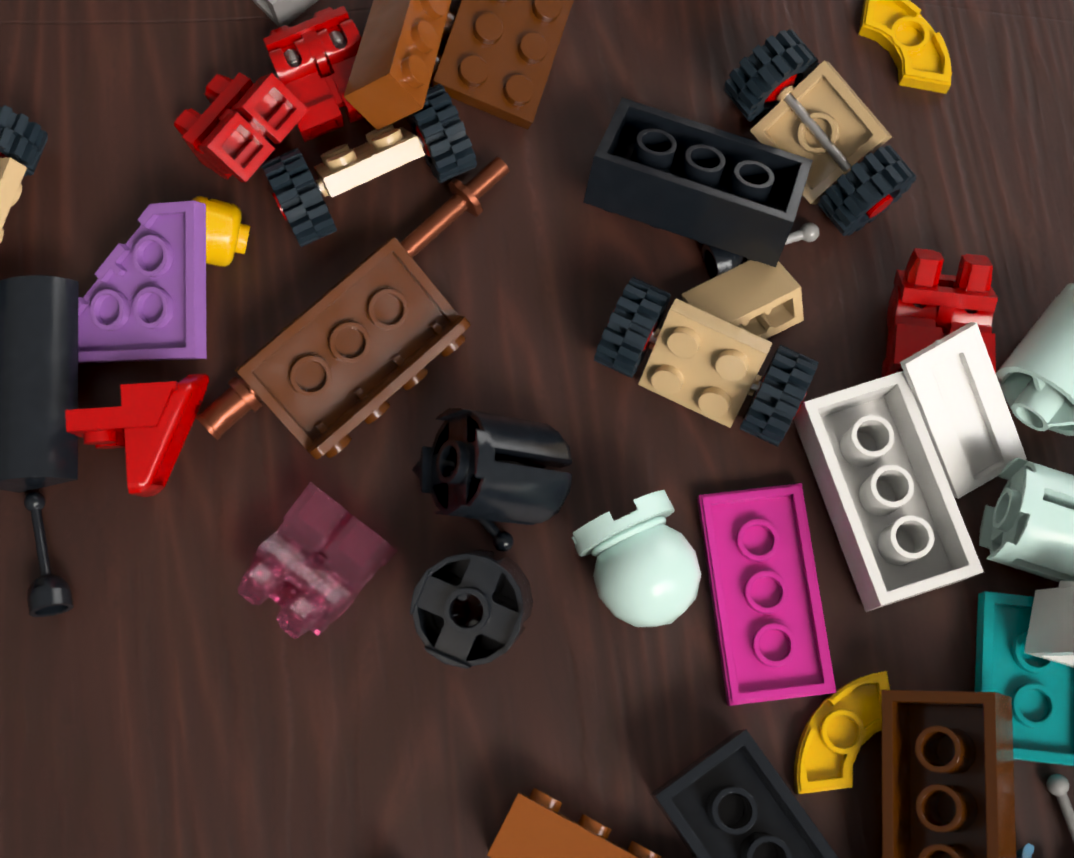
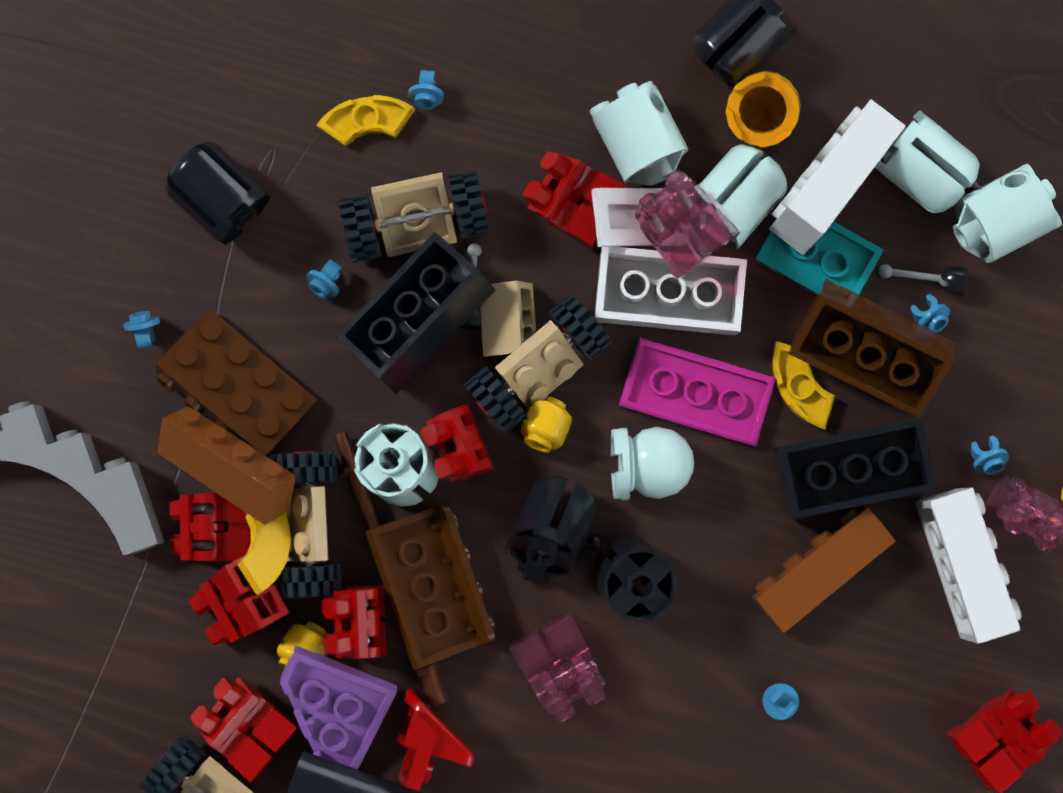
camera: 65 degrees left, 10 degrees up
(82, 201) = (234, 716): none -> red hips
(266, 274) = (357, 622): none -> red hips
(311, 122) = (266, 552): none -> yellow tile
(492, 235) = (385, 480): none -> light aqua cylinder
(553, 300) = (458, 445): none -> red hips
(629, 409) = (546, 425): none -> yellow head
(686, 71) = (324, 282): none -> dark azure plate
(976, 87) = (426, 94): none -> dark azure plate
(992, 457) = (671, 211): none -> clear pink hips

